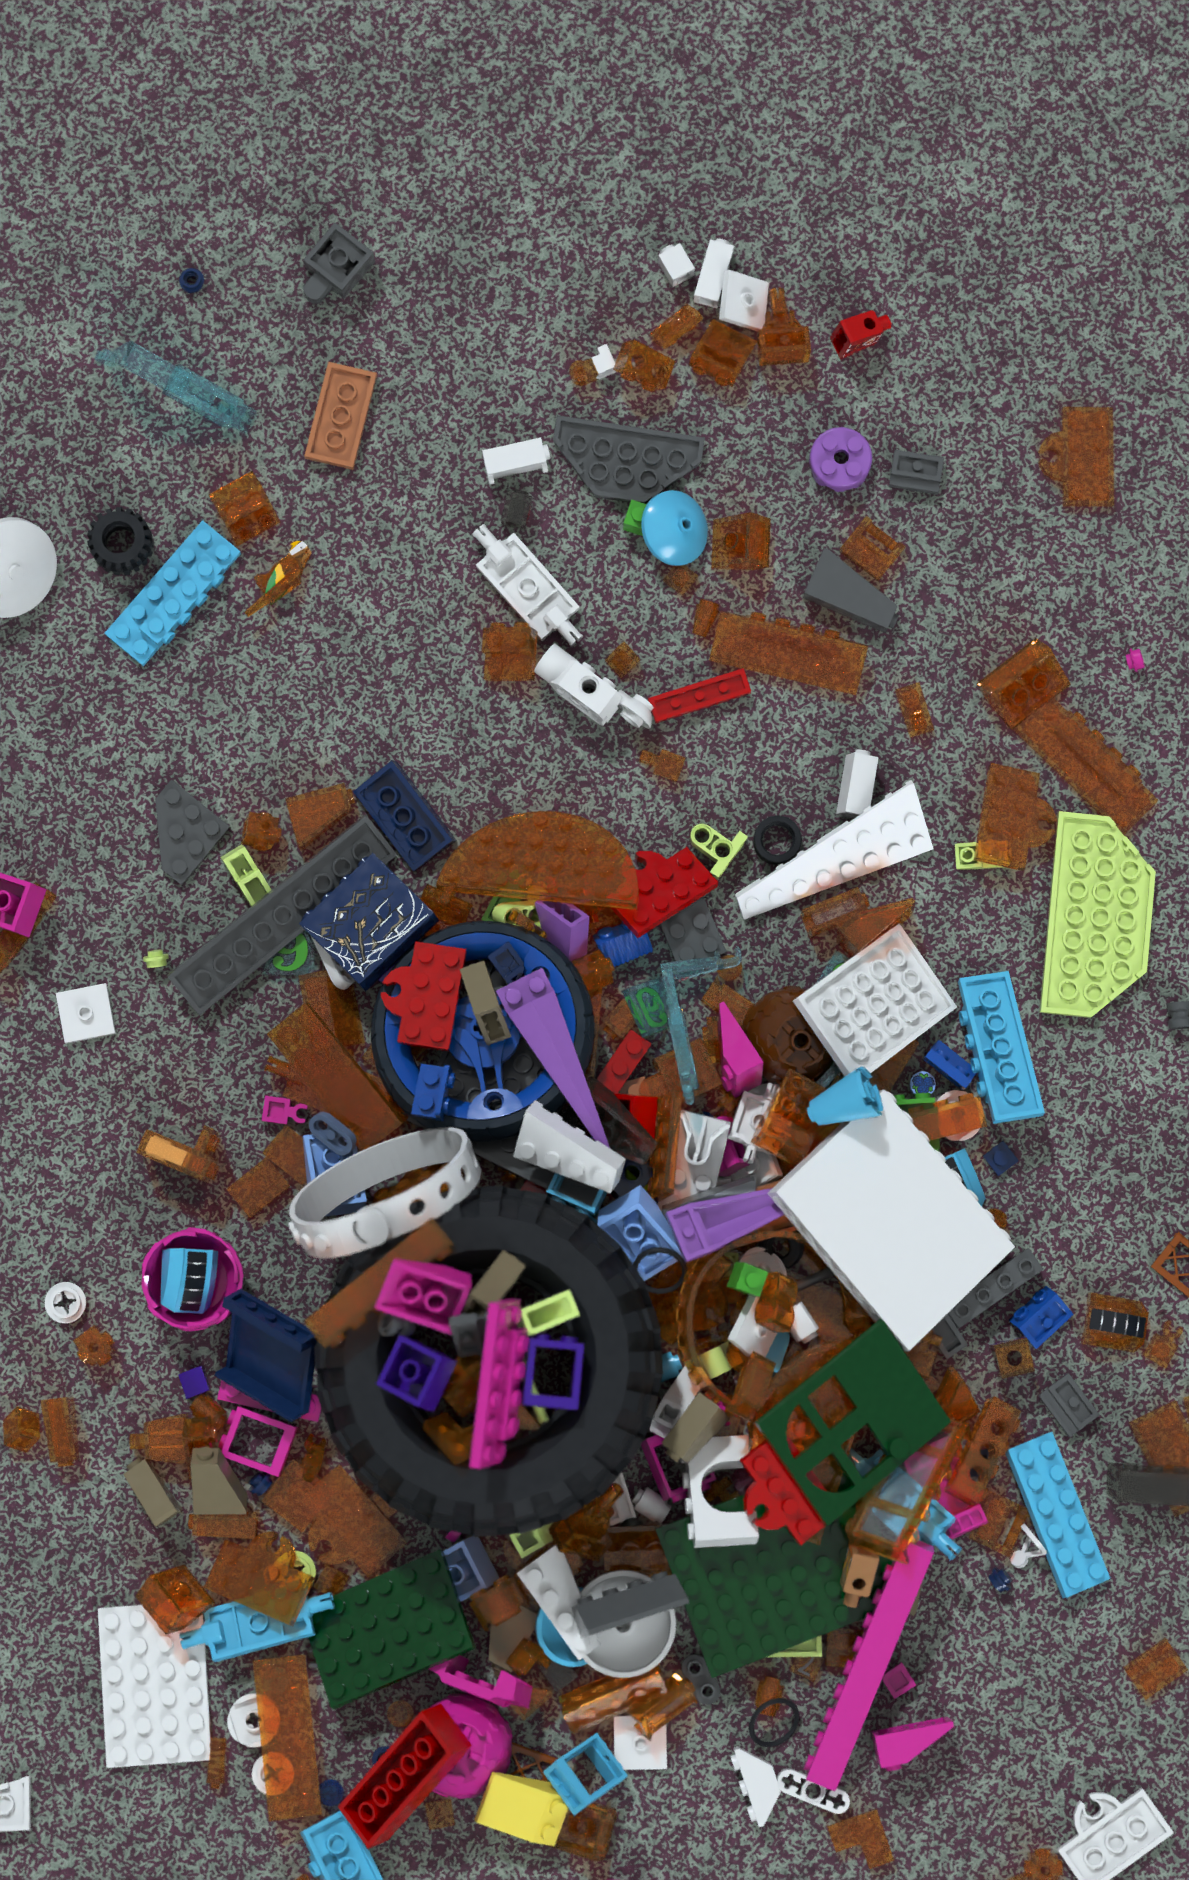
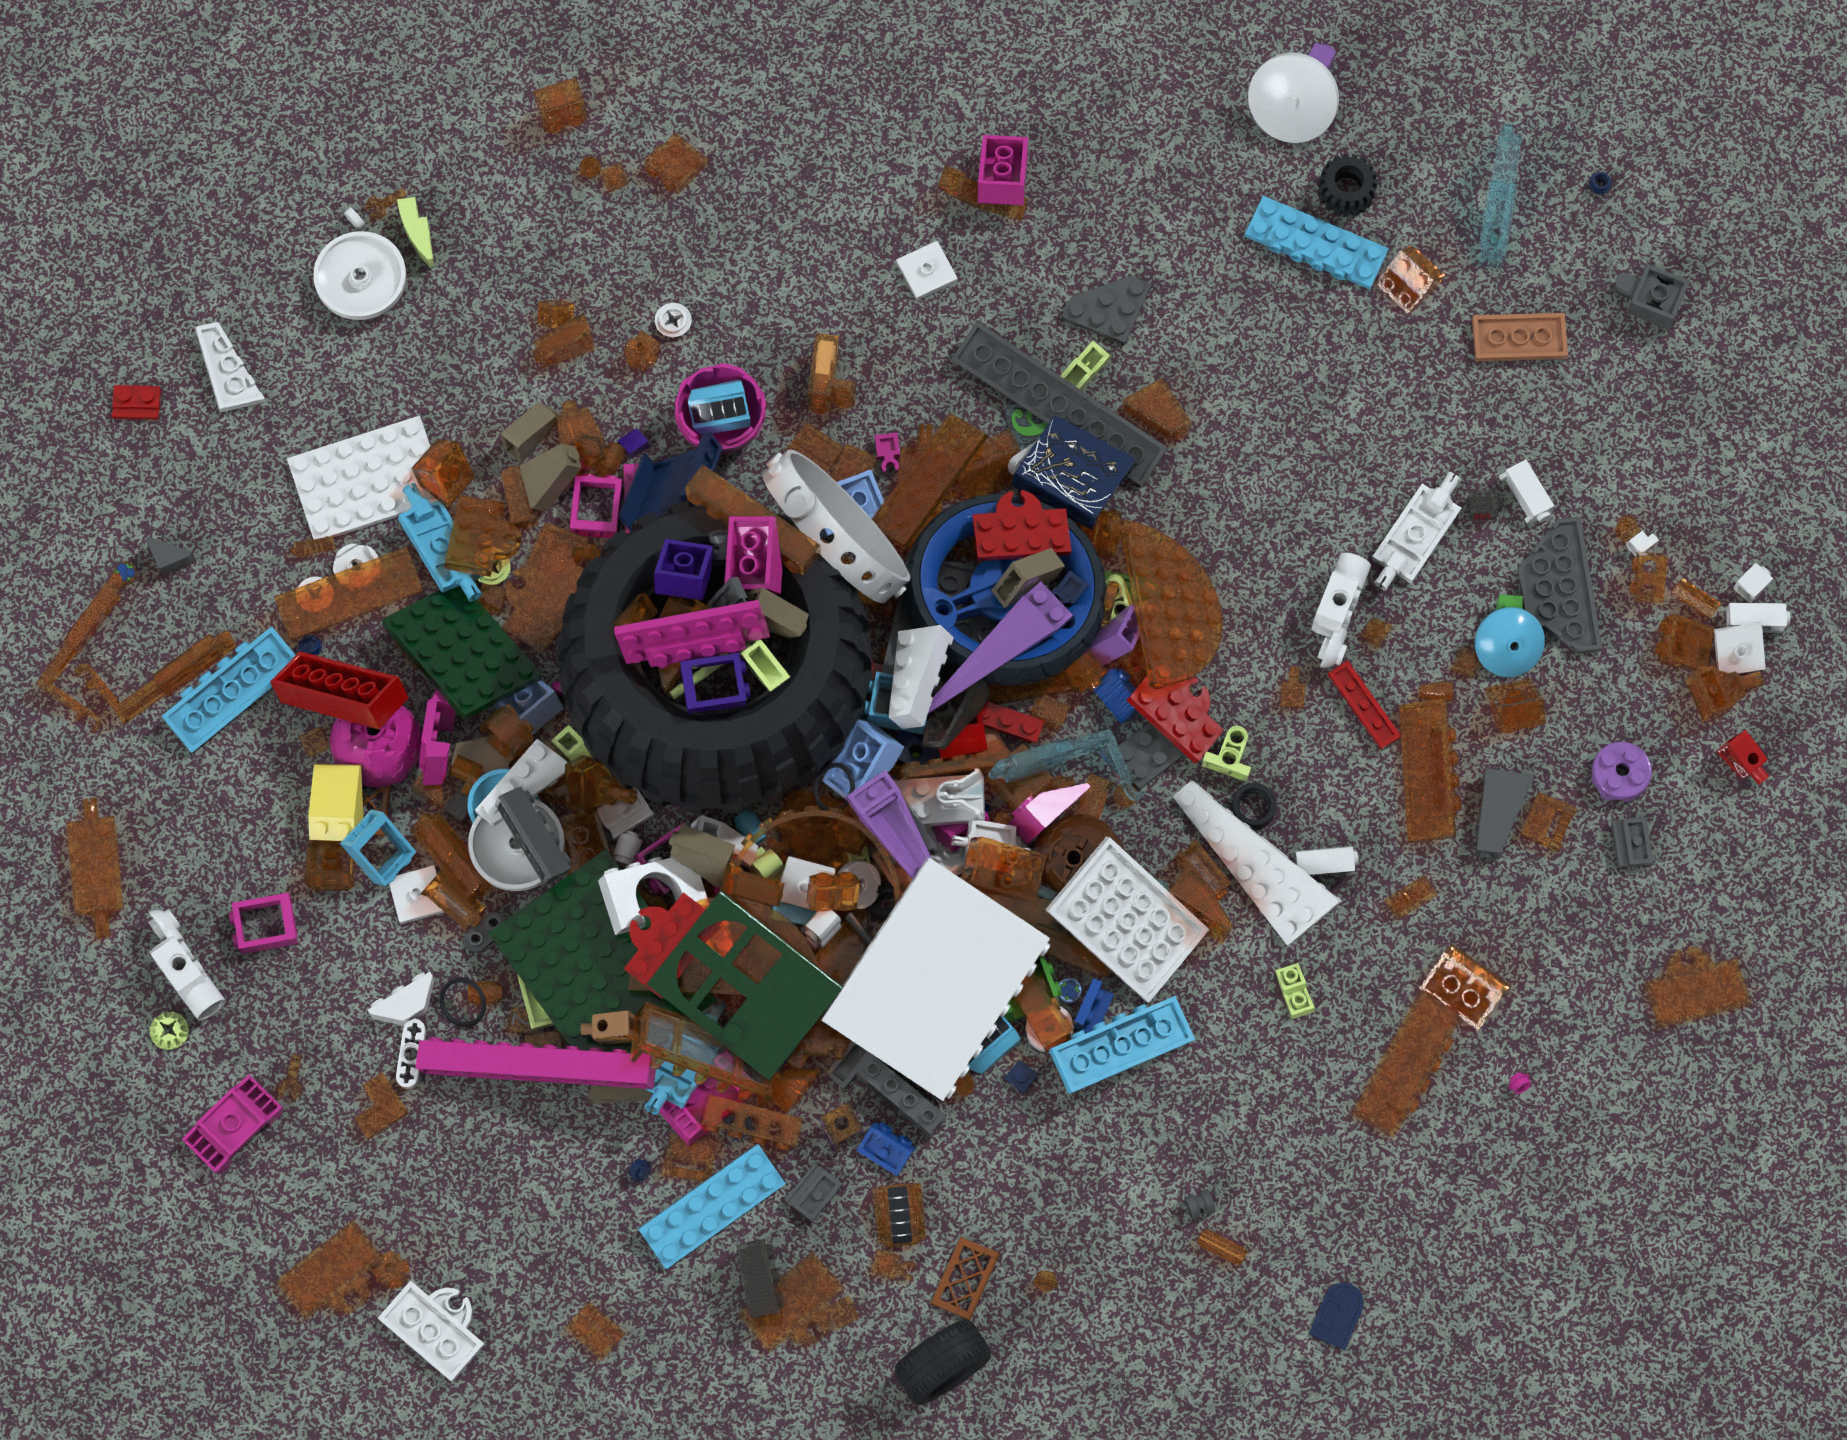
camera: 75 degrees right, 10 degrees down
(156, 959) = (990, 313): yellowish green plate -> none
(260, 831) = (1127, 367): clear orange brick -> none
(260, 1483) = (560, 517): dark blue plate -> none
(282, 576) = (1358, 326): clear orange animal -> none
(333, 1133) = (879, 491): sand blue plate -> none
(404, 815) = (1179, 484): dark blue slope -> none
(432, 1092) = (936, 553): blue bracket -> none
(509, 652) = (1352, 531): clear orange plate -> none
(648, 1006) = (1070, 724): clear light blue tile -> none
(747, 1279) = (845, 857): bright green brick -> none
(847, 1100) = (1031, 904): medium azure cone -> none
(898, 1680) = (527, 1102): dark pink plate -> none
(904, 1742) = (471, 1116): dark pink slope -> none
(1011, 817) = (1337, 1005): clear orange plate -> none
(1021, 1557) = (664, 1184): white piece -> none
(1095, 916) = (1268, 1105): yellowish green plate -> none

